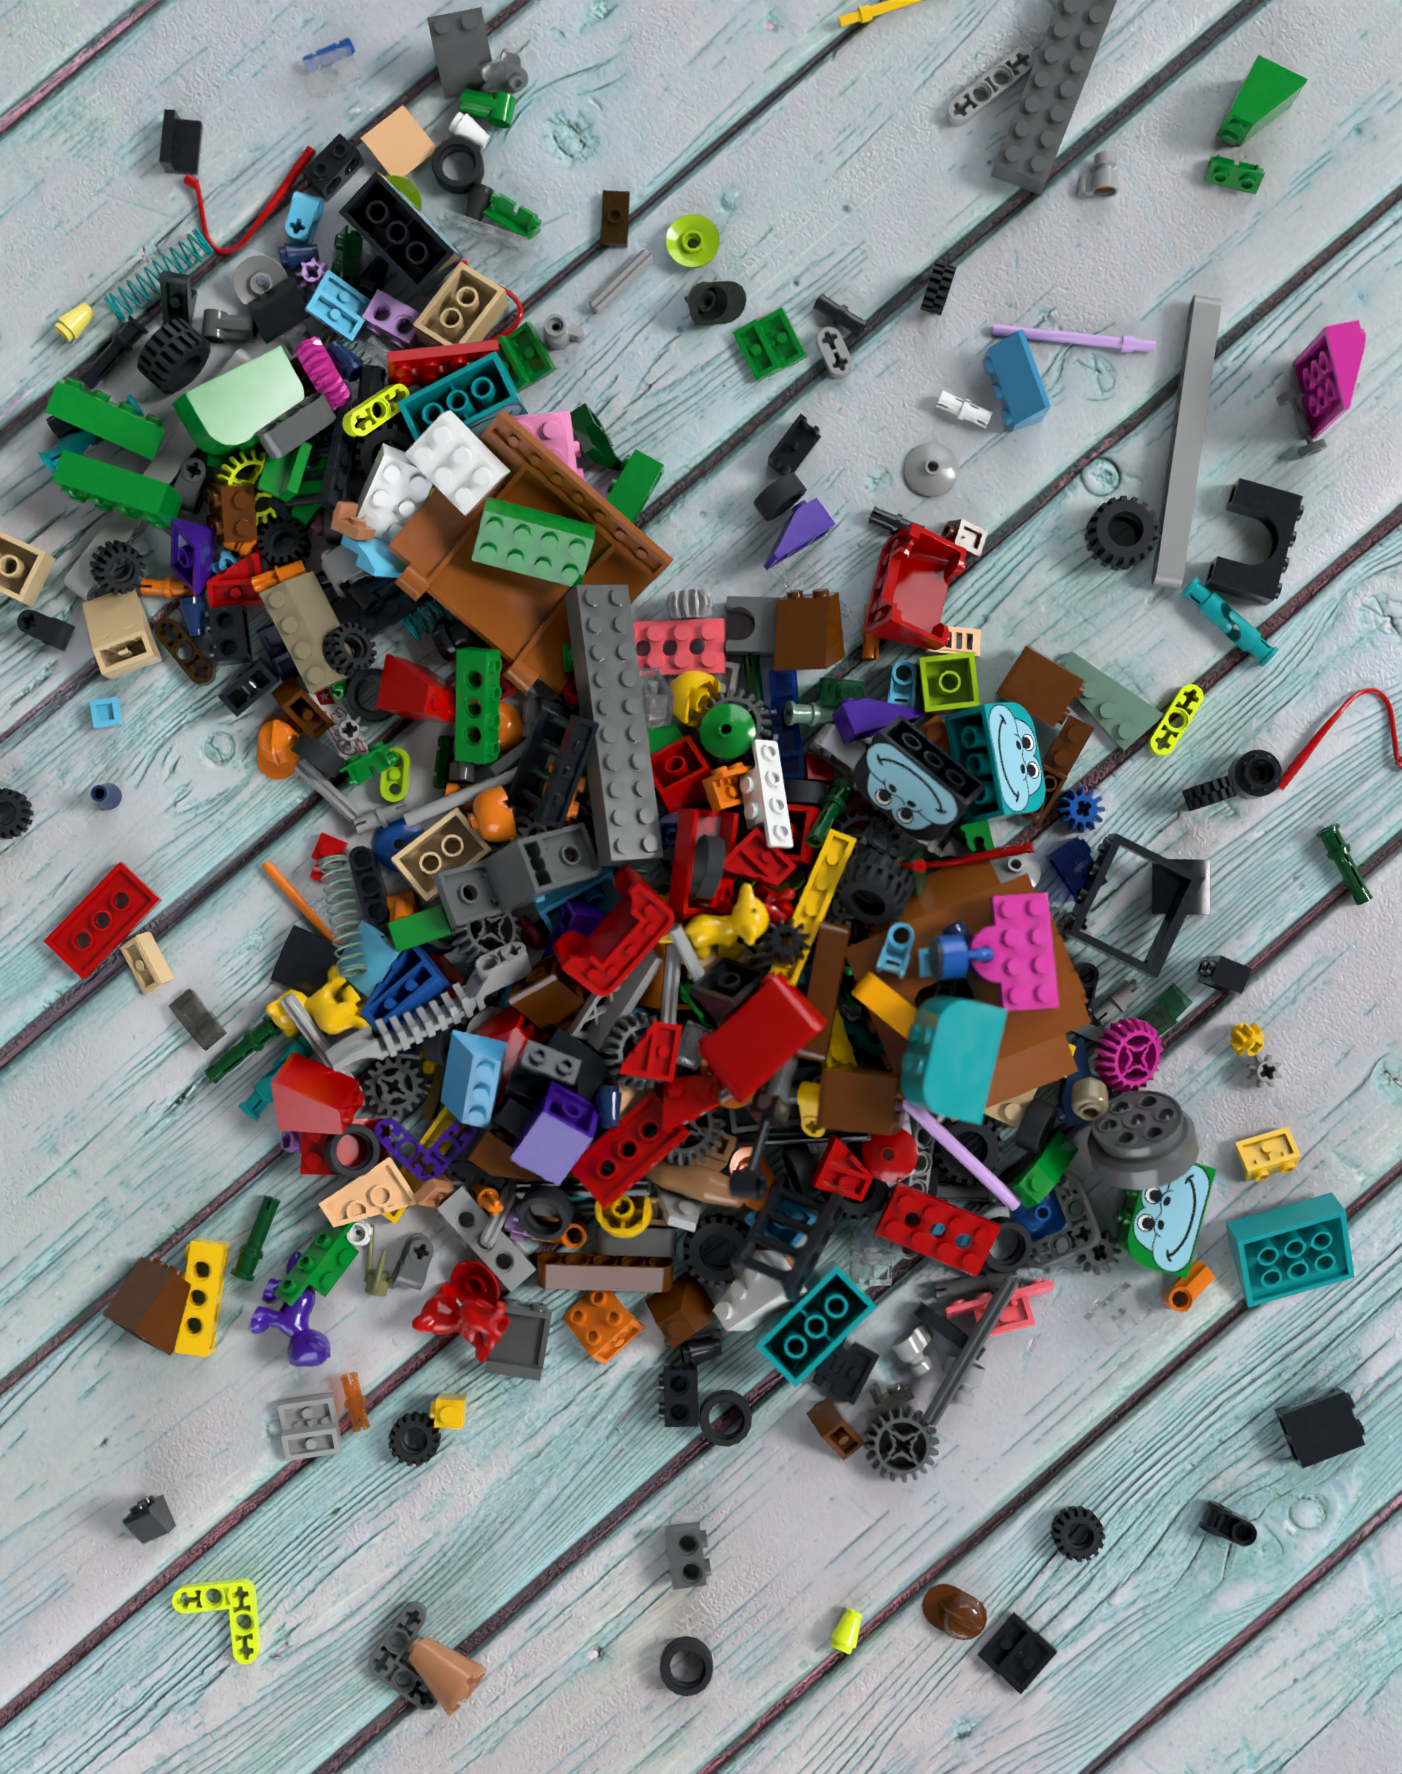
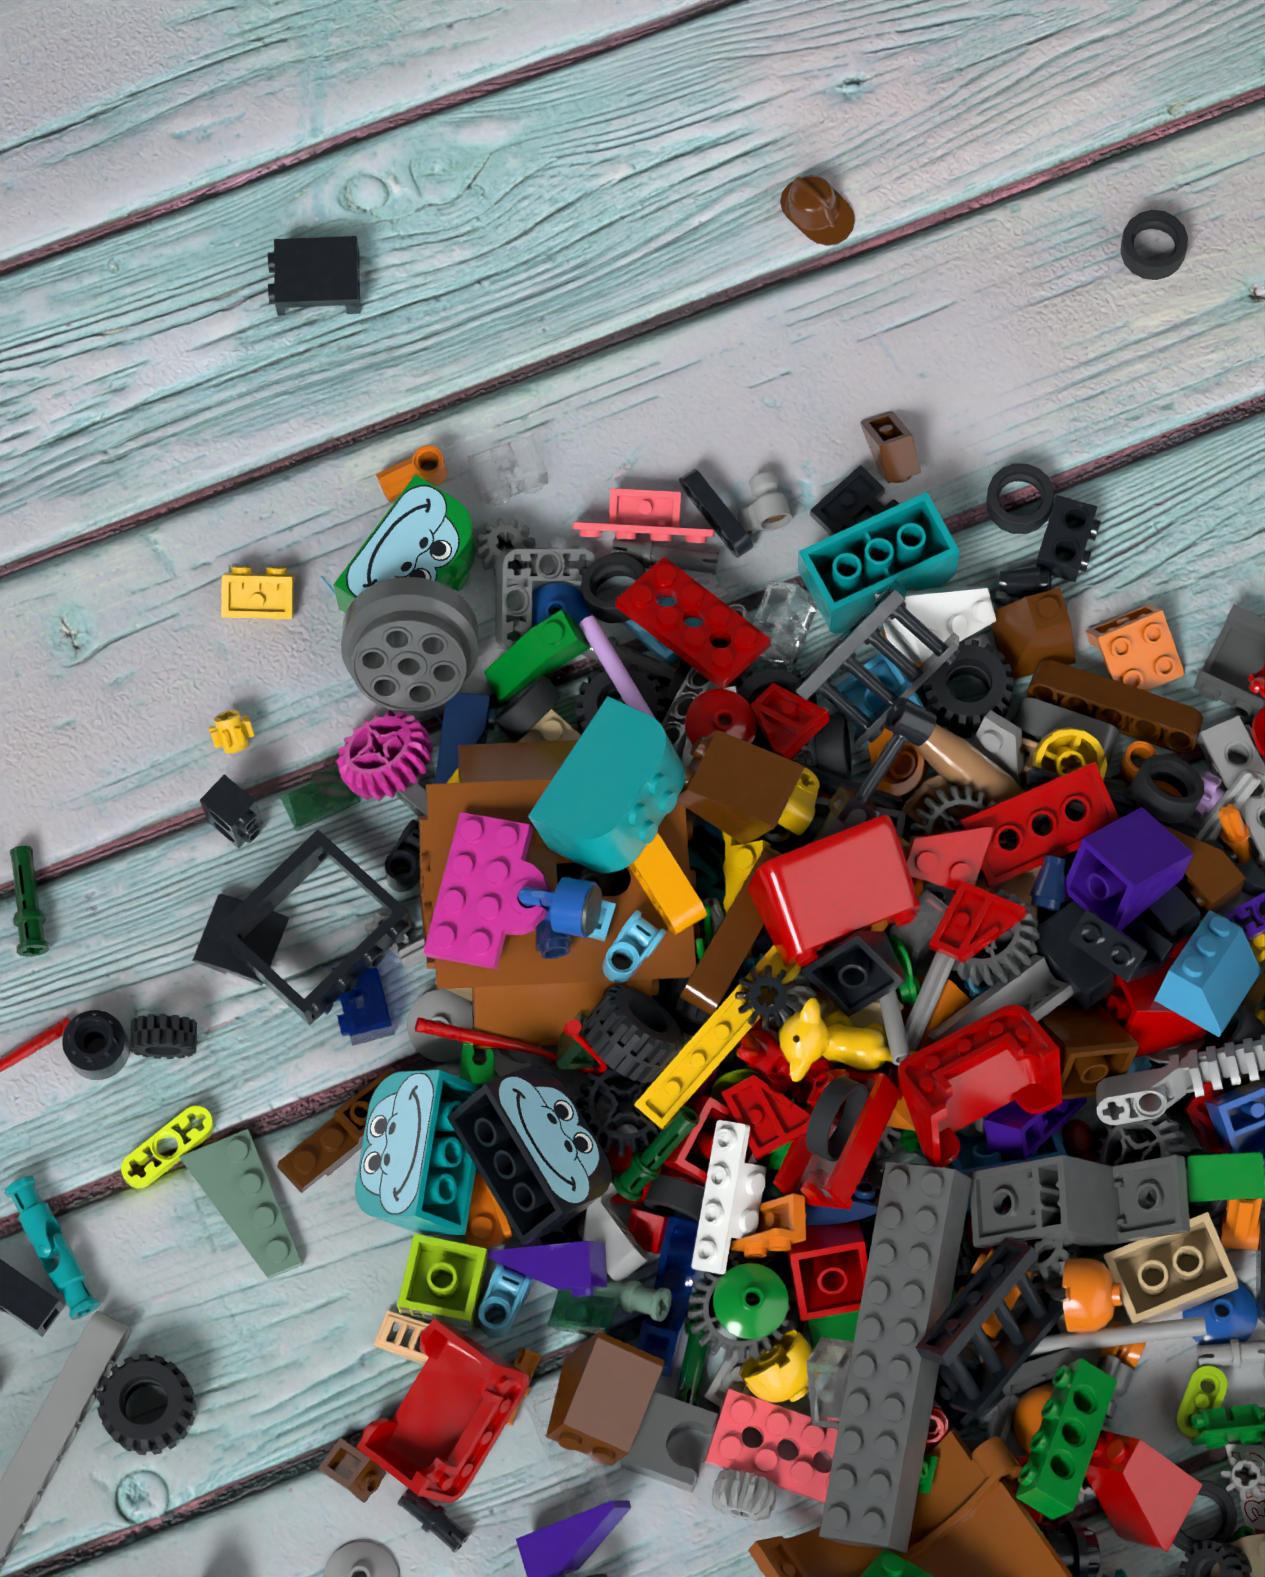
camera: 160 degrees left, 15 degrees down
(442, 761) = (1133, 1400): dark green axle -> none
(681, 1555) = (1118, 362): dark grey brick -> none
(846, 1632) = (952, 225): neon yellow cone -> none
(892, 1452) = (794, 419): dark grey gear -> none
(895, 1396) = (808, 459): clear smoke bracket -> none
(970, 1350) = (699, 478): dark grey axle -> none
(971, 1381) = (712, 456): light grey piece -> none
(1017, 1652) = (759, 145): black slope -> none
(1041, 686) = (326, 1237): reddish brown slope -> none
(1084, 1549) = (643, 230): black tyre -> none
(1089, 1098) = (454, 713): dark tan head -> none
(1090, 812) = (343, 1074): blue gear -> none
(1117, 1002) = (371, 826): light grey pin -> none
(1224, 1522) = (469, 210): black piece -> none
(1271, 1074) = (221, 679): light grey gear -> none
(1291, 1249) = (273, 479): teal slope -> none

